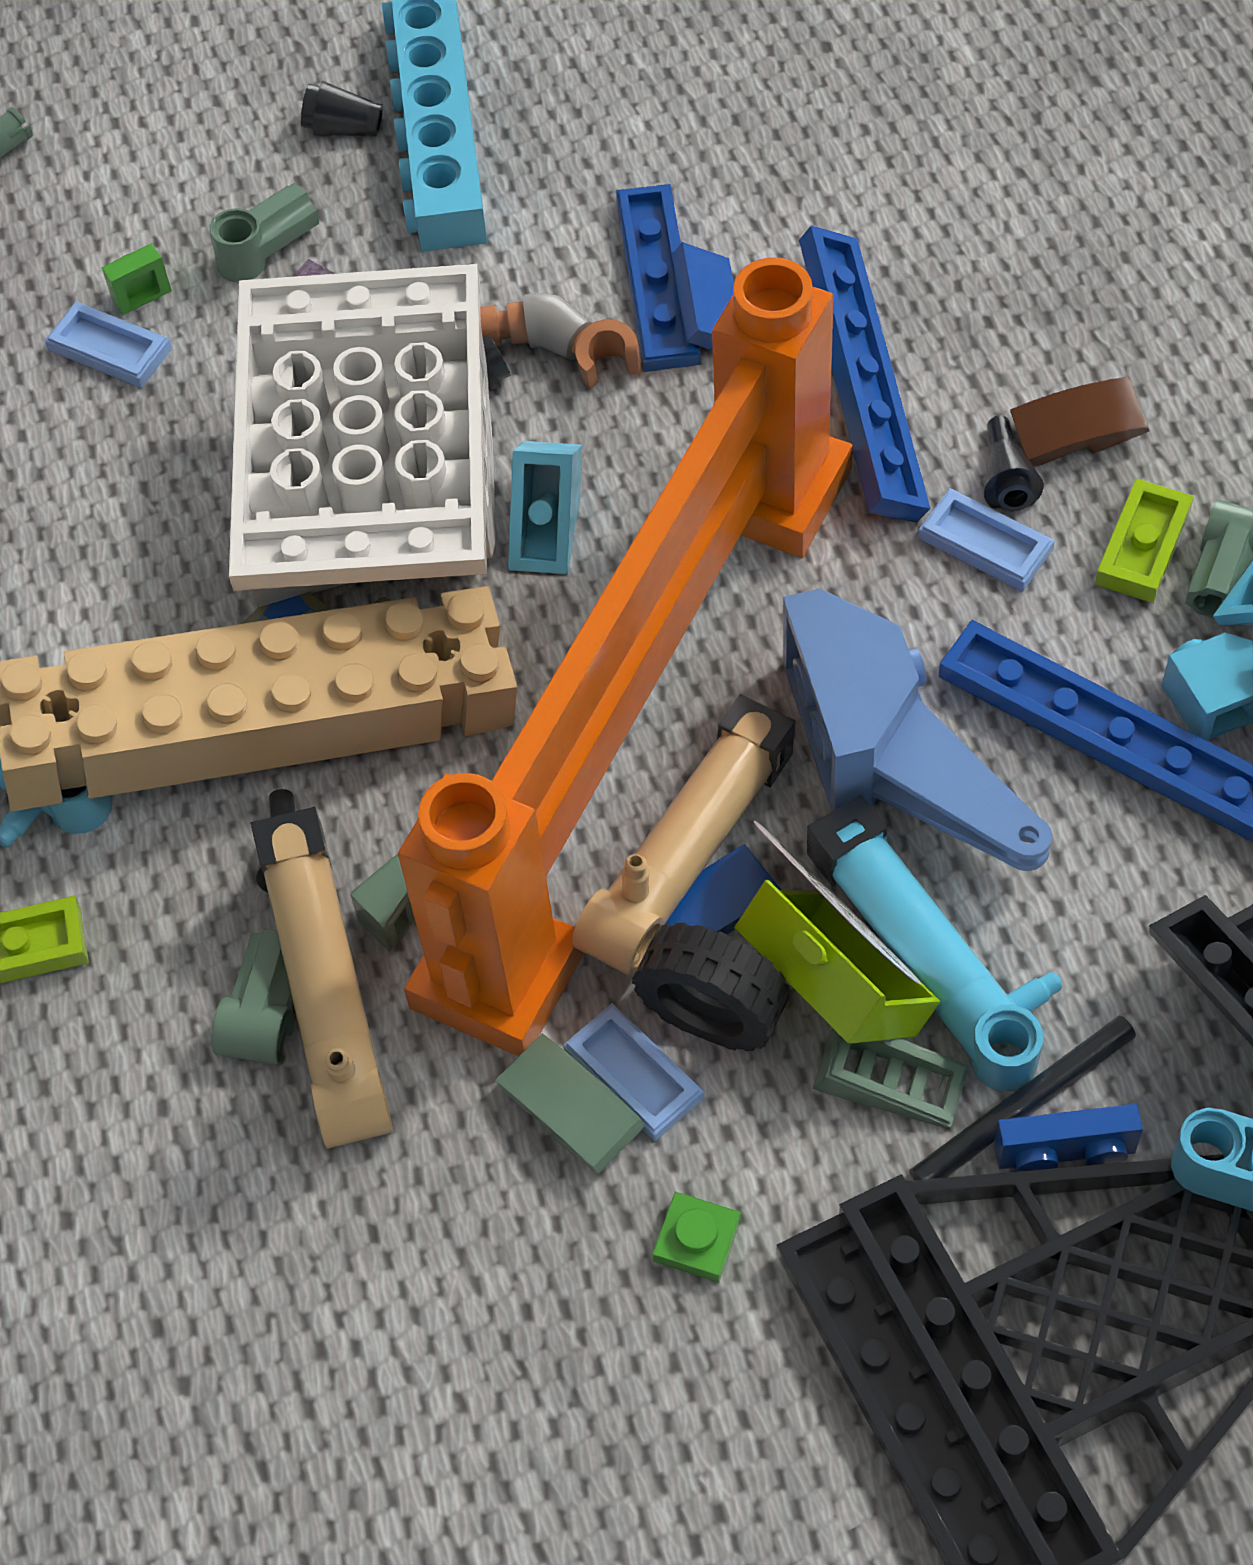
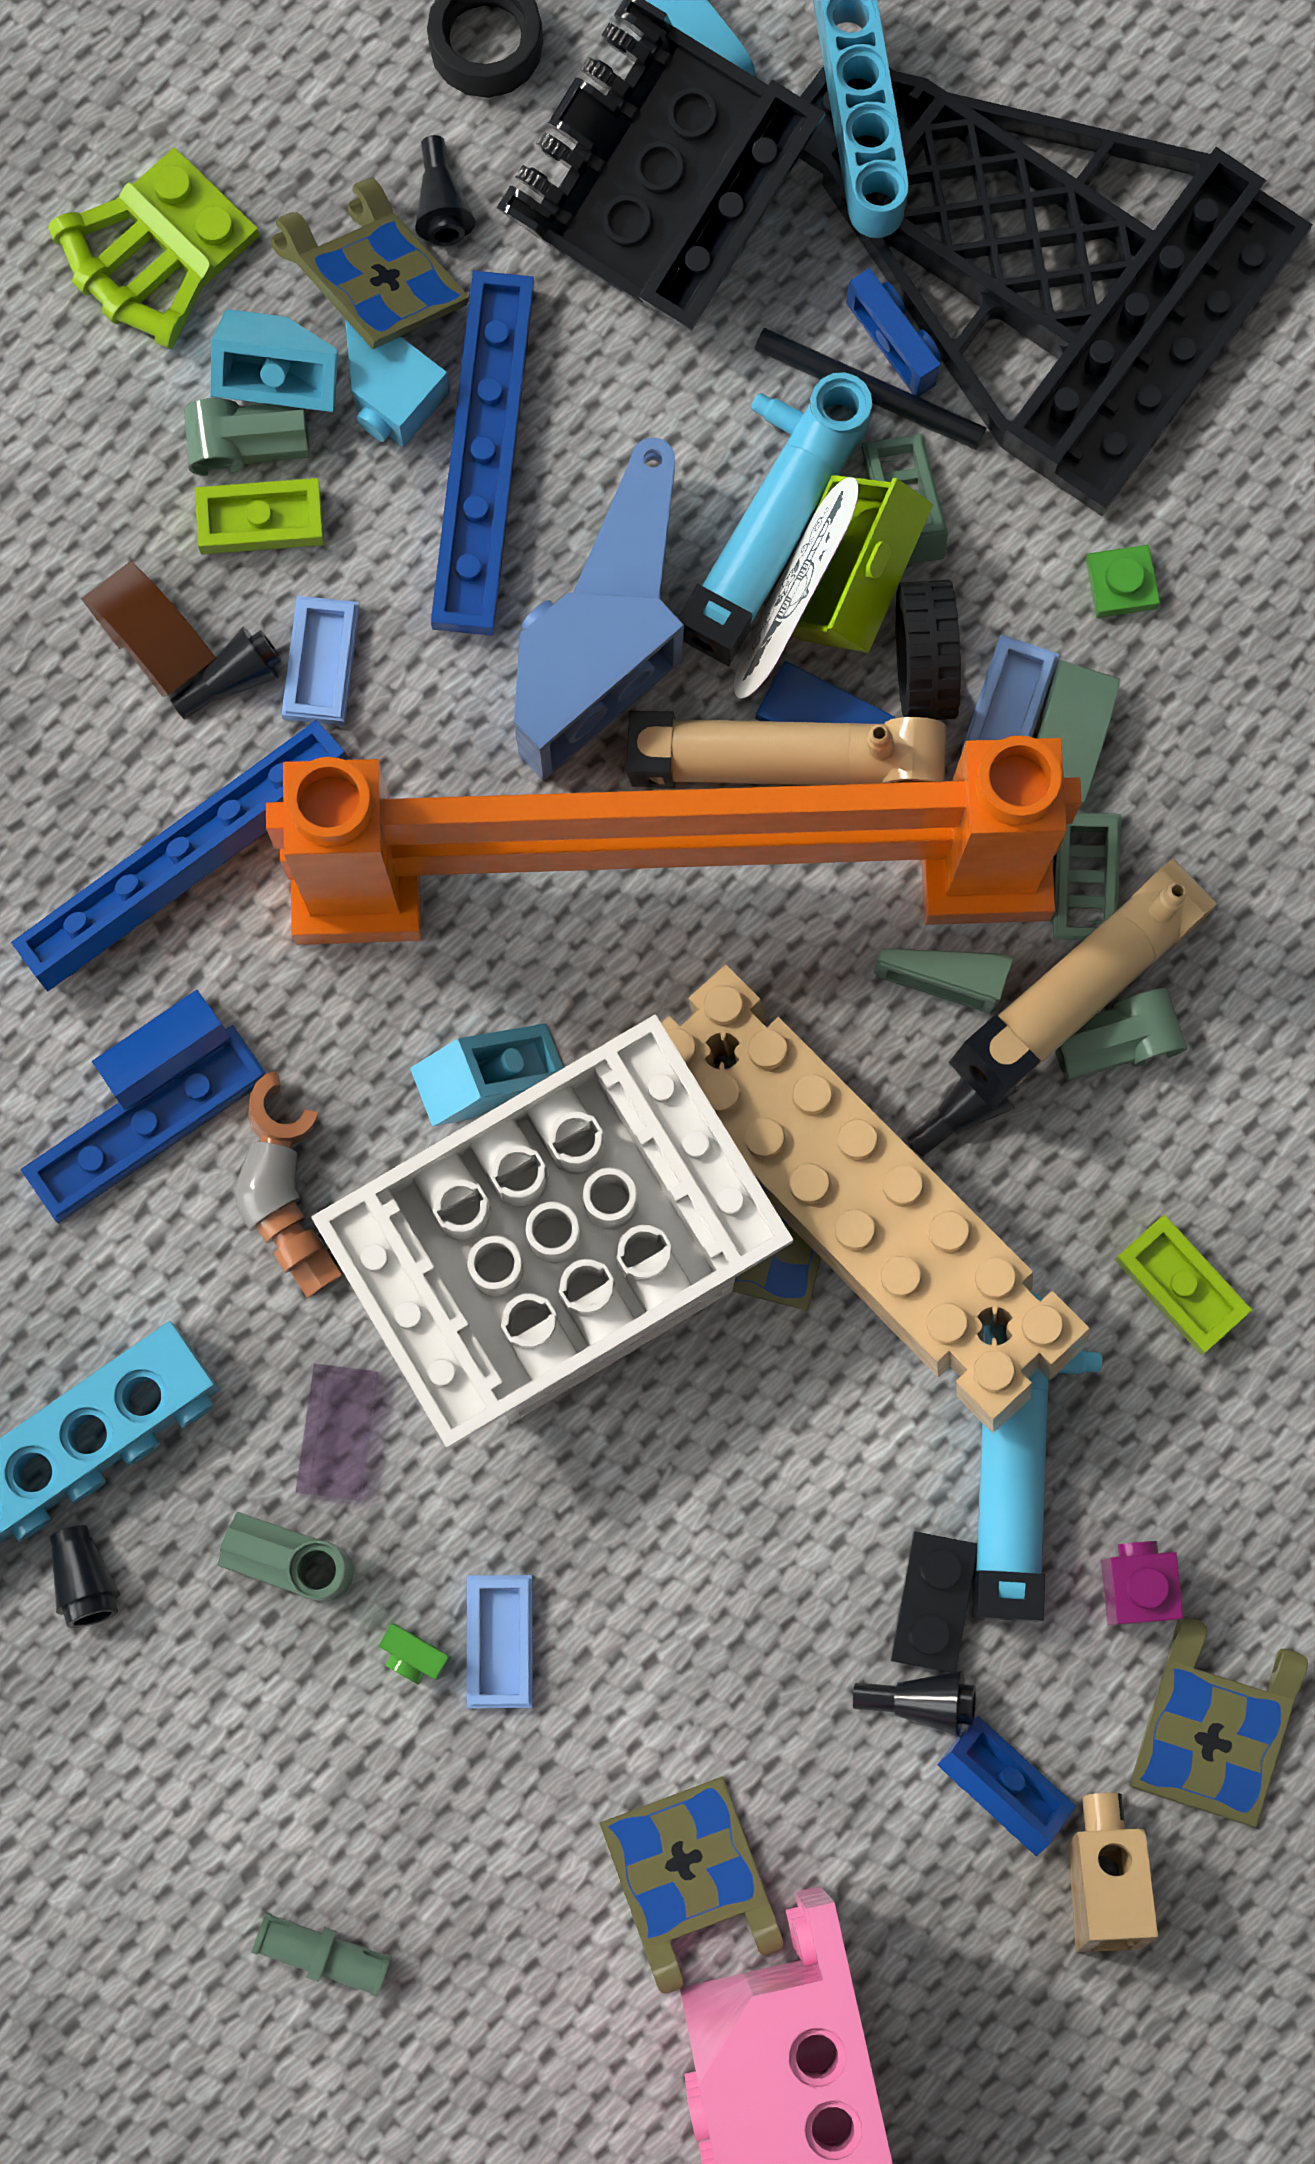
camera: 125 degrees left, 20 degrees up
(467, 1074) = (1110, 851): none -> sand green slope

